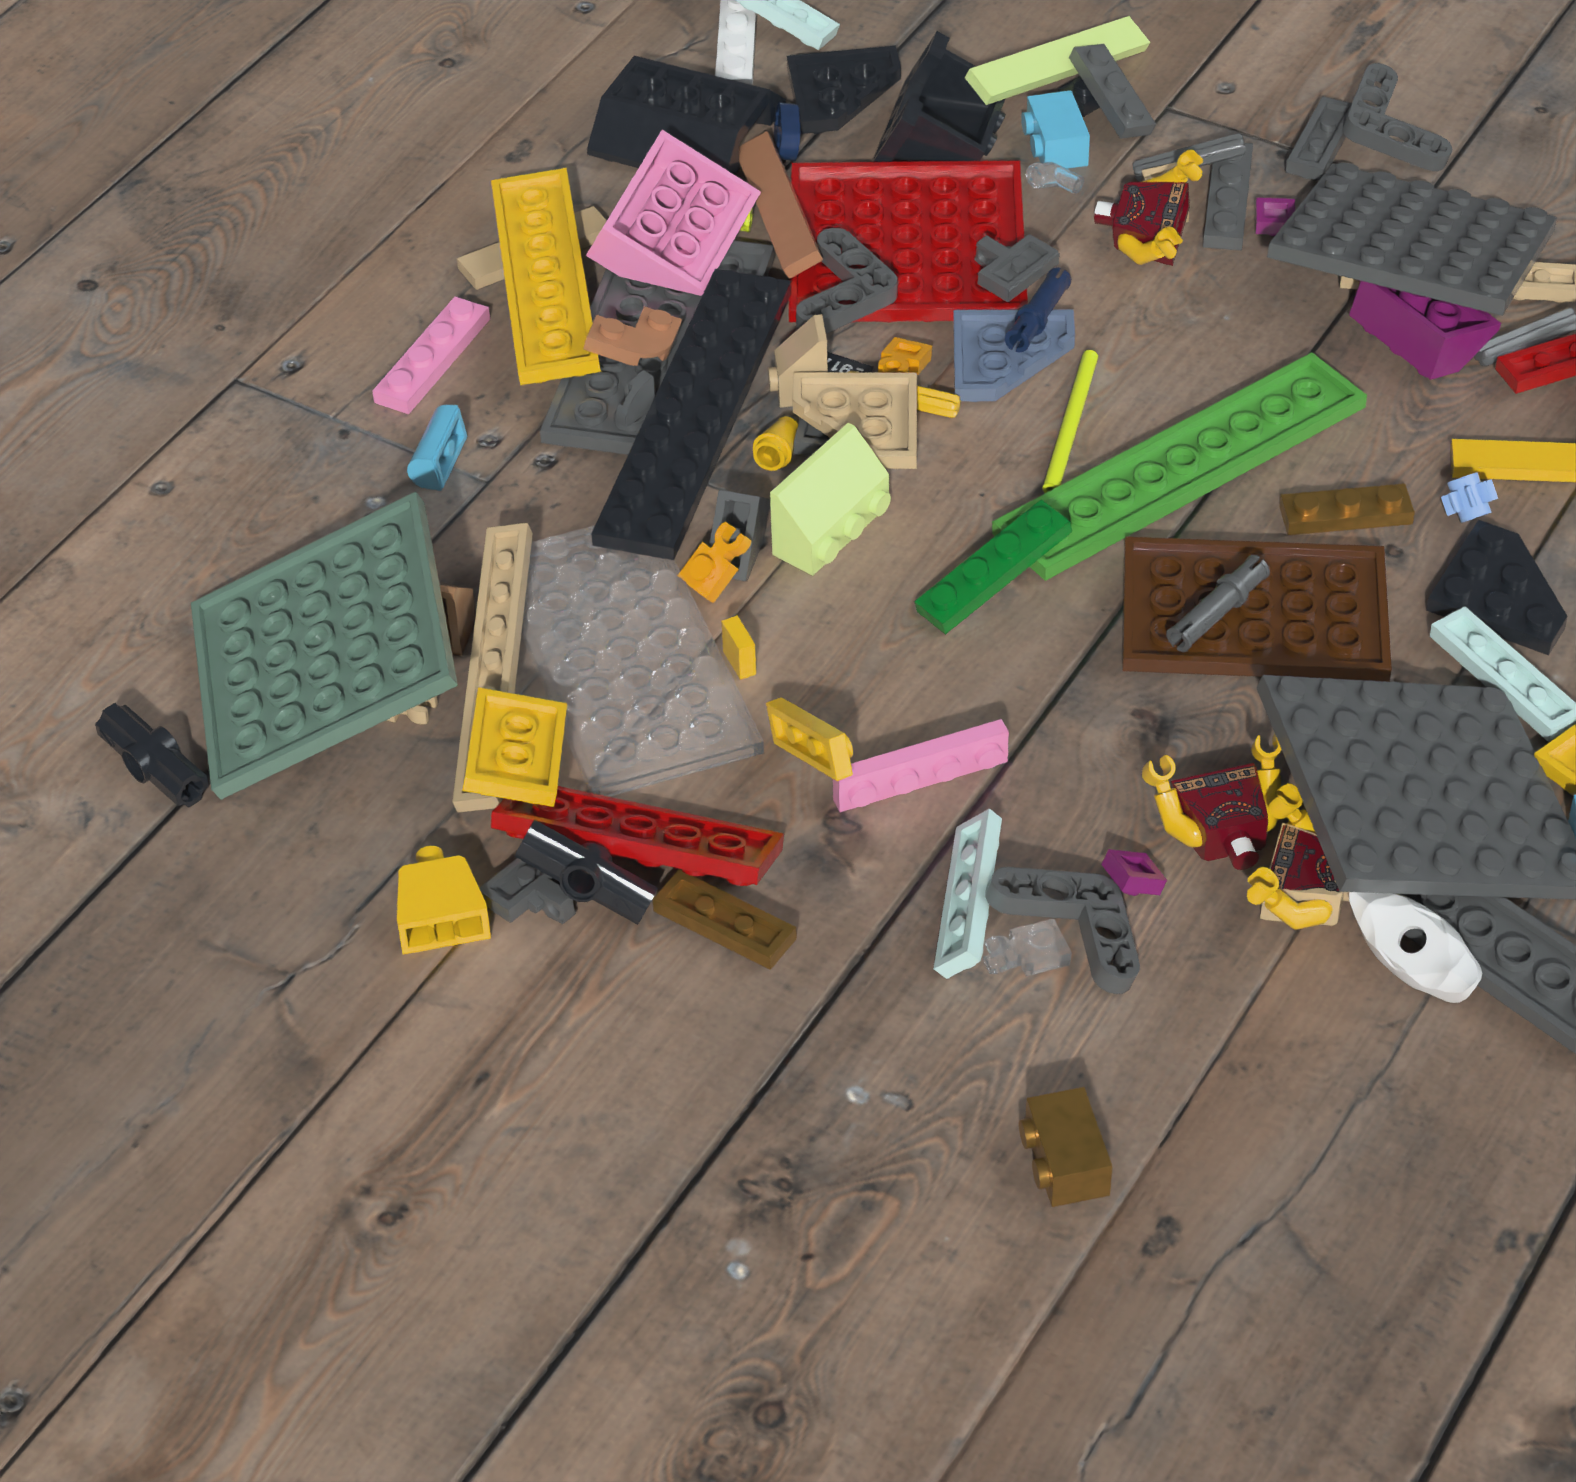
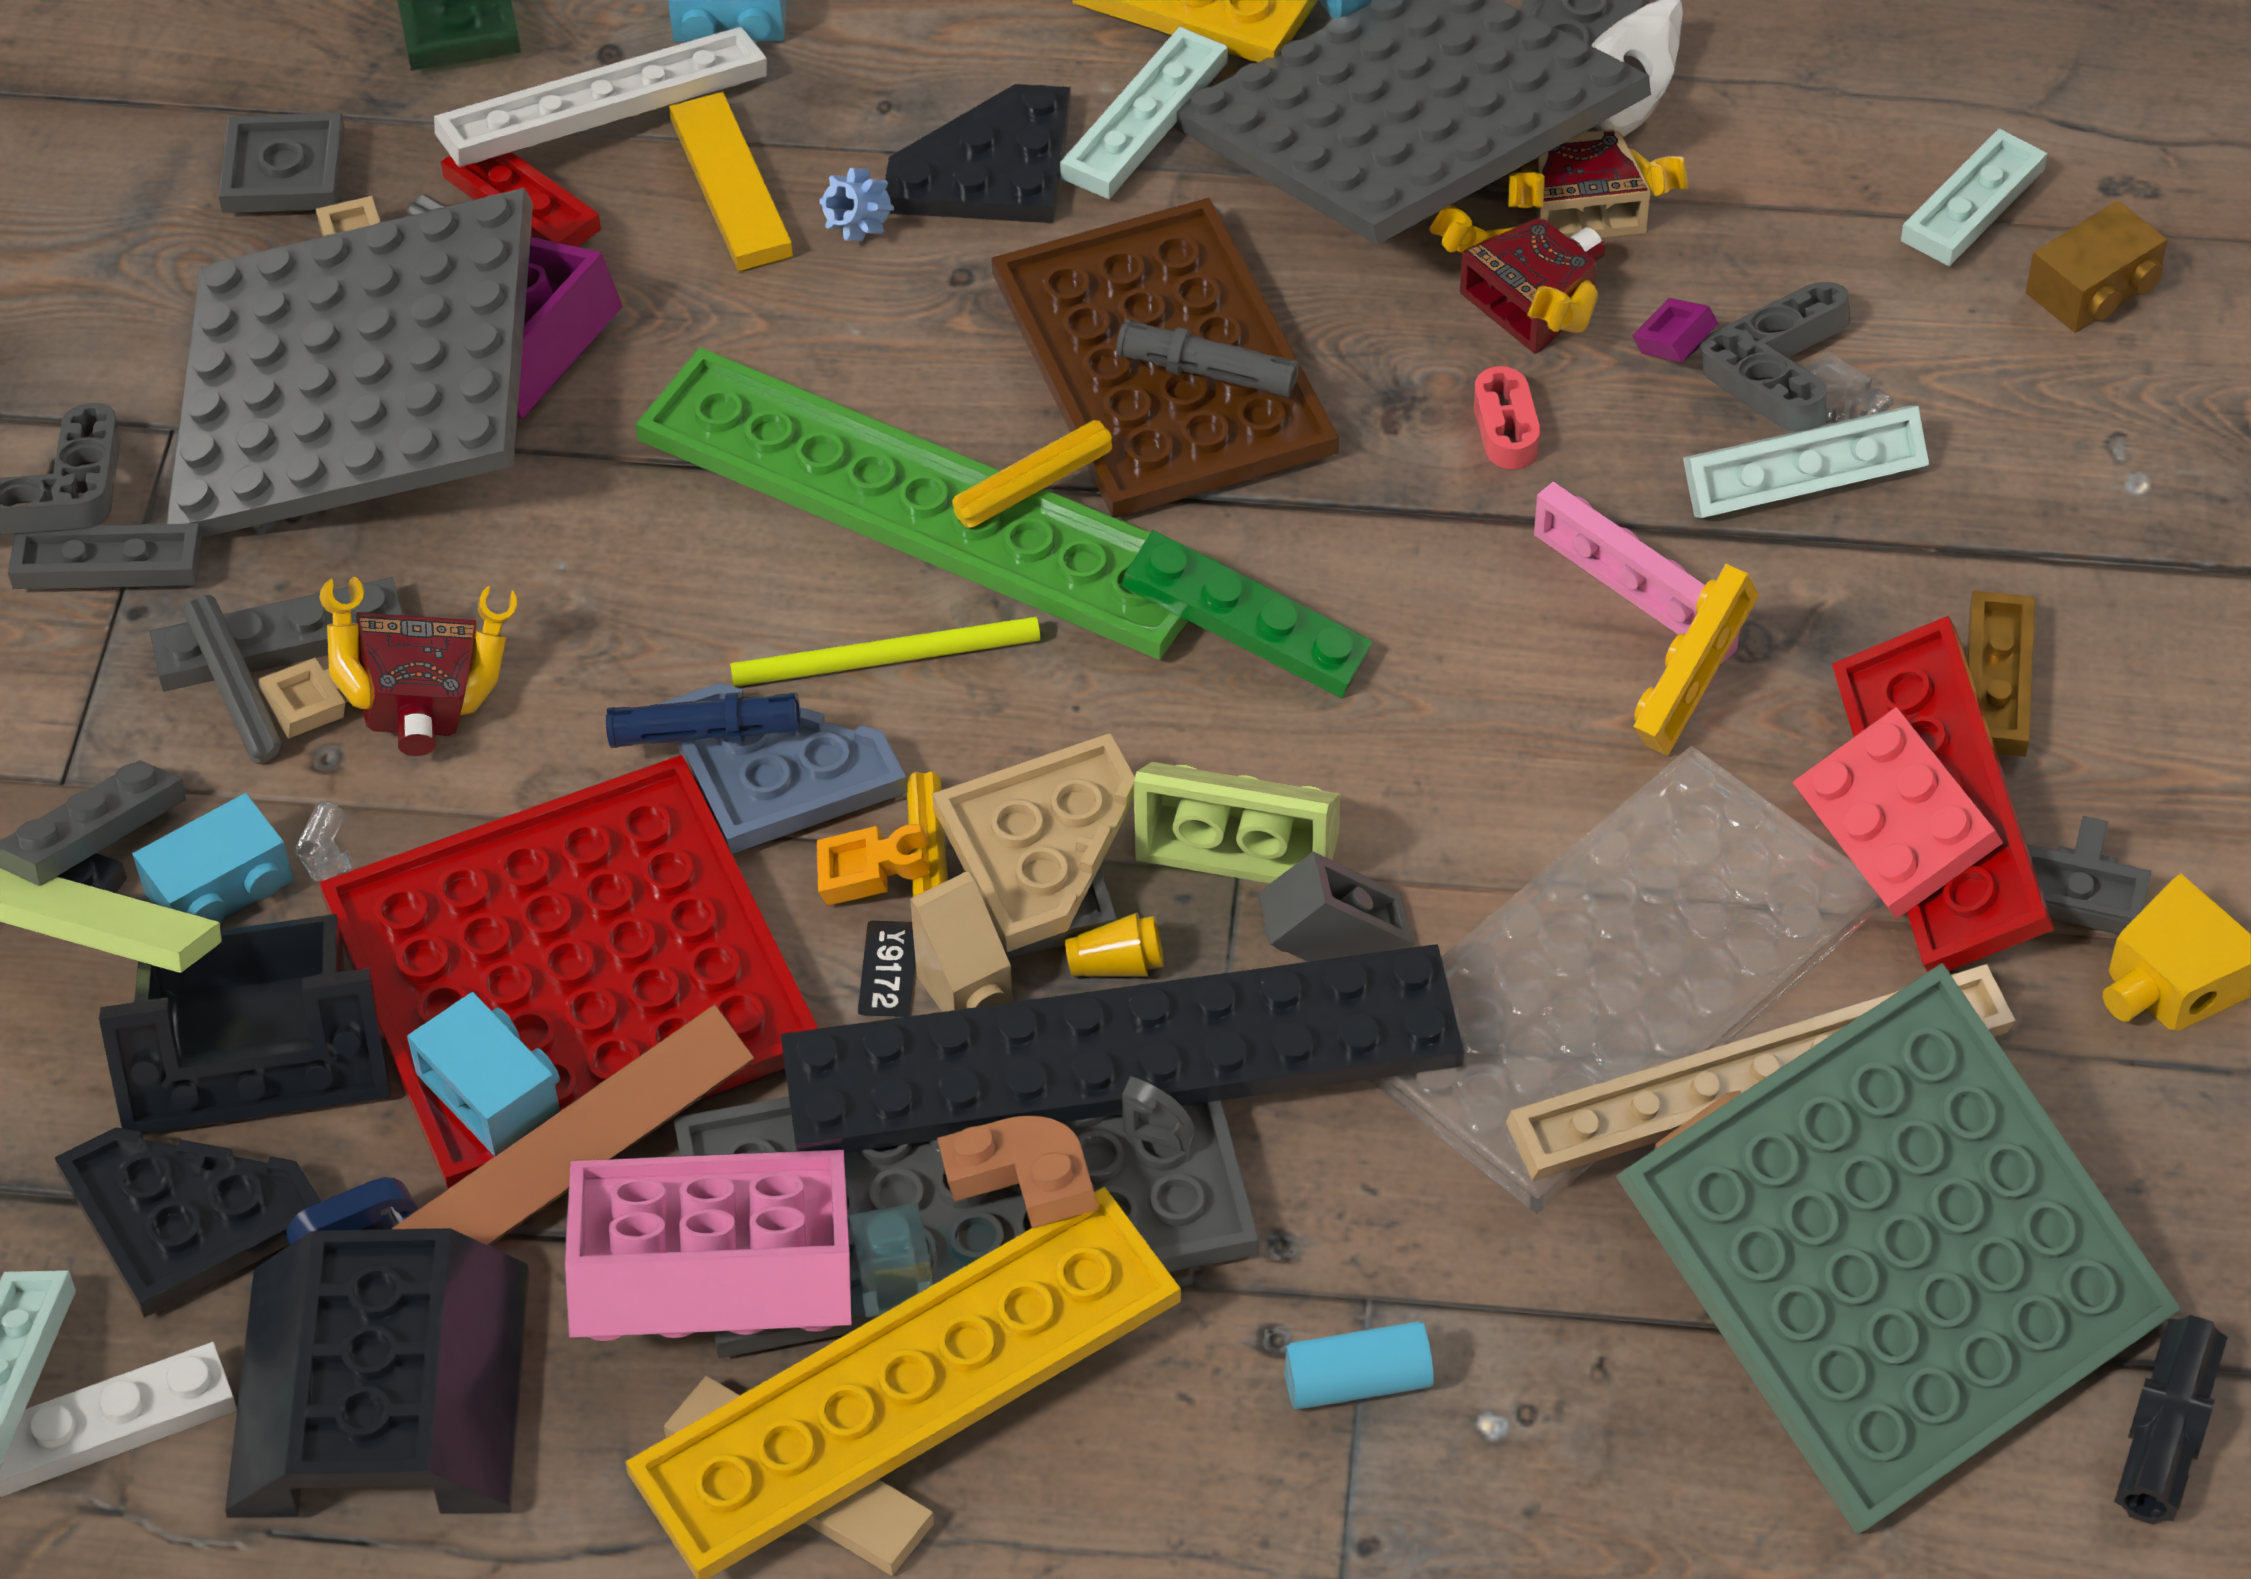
camera: 115 degrees left, 5 degrees up
(431, 355) = (1133, 1499): bright pink plate -> none
(515, 747) = (1947, 917): yellow plate -> none
(606, 885) = (2055, 800): black piece -> none
(612, 275) = (890, 1256): none -> clear light blue brick
(635, 798) = (1897, 812): none -> coral plate
(711, 567) = (1418, 908): light orange plate -> none
(738, 647) = (1550, 829): yellow tile -> none
(835, 171) = (485, 1072): none -> medium azure brick
(856, 283) = (748, 953): dark grey beam -> none
(1013, 268) = (616, 778): dark grey hinge -> none
(1105, 763) = (1518, 416): none -> coral beam
(1162, 498) = (1032, 474): none -> yellow axle
(1186, 1111) = (1973, 197): none -> light aqua plate
(1272, 214) = (324, 554): magenta plate -> none
(1346, 509) = (917, 330): pearl gold plate -> none

